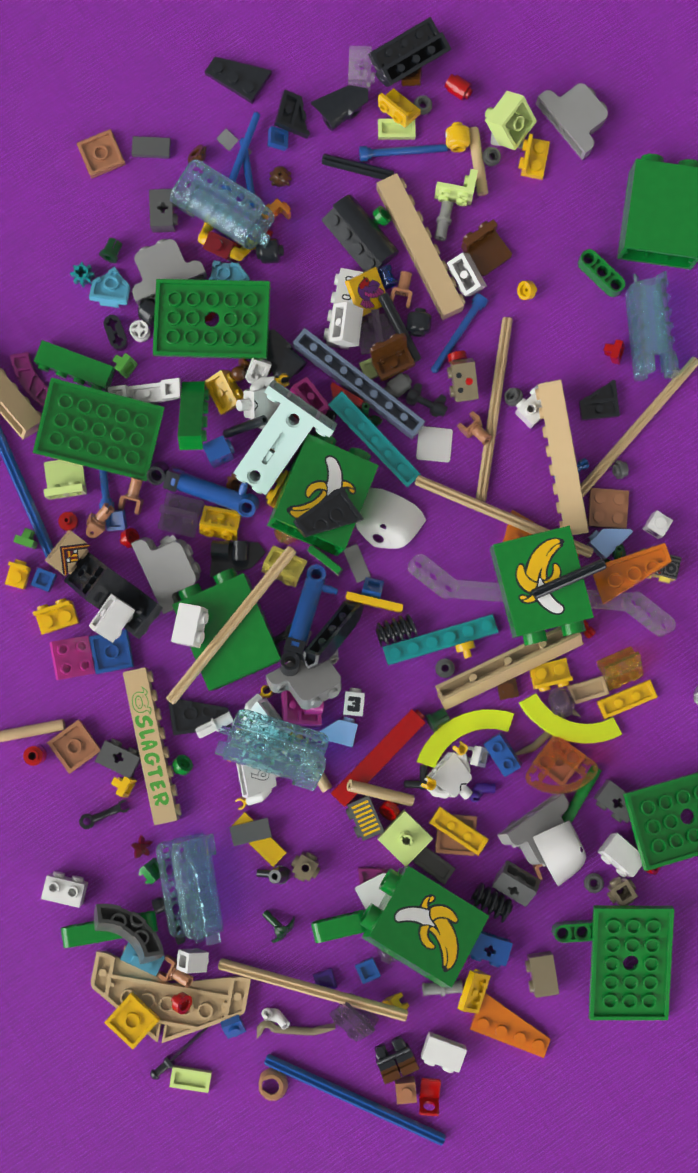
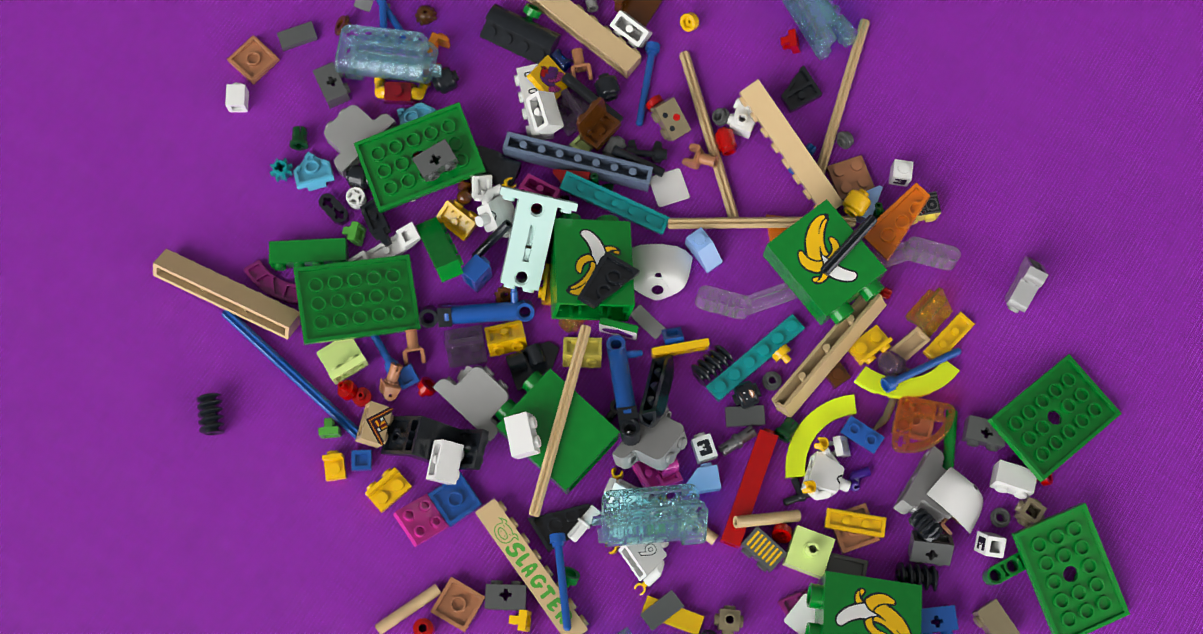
camera: 25 degrees left, 10 degrees down
(57, 509) = (347, 389): none -> red tile
(70, 186) = (237, 97): none -> white brick
(148, 364) = (376, 222): none -> black hinge
(184, 731) = (557, 541): none -> blue piece
(214, 326) = (440, 152): none -> dark grey brick
(387, 709) = (737, 440): none -> flat silver pin
(405, 689) = (744, 417): none -> dark grey tile
(415, 407) = (628, 156): none -> black piece
(415, 671) = (746, 394): none -> black head
(438, 519) = (703, 250): none -> light blue slope
(507, 422) = (726, 141): none -> red brick
(518, 864) = (925, 525): none -> black gear
(550, 720) = (890, 383): none -> blue piece
(571, 904) = (990, 544): none -> white brick
(599, 537) = (856, 203): none -> yellow head

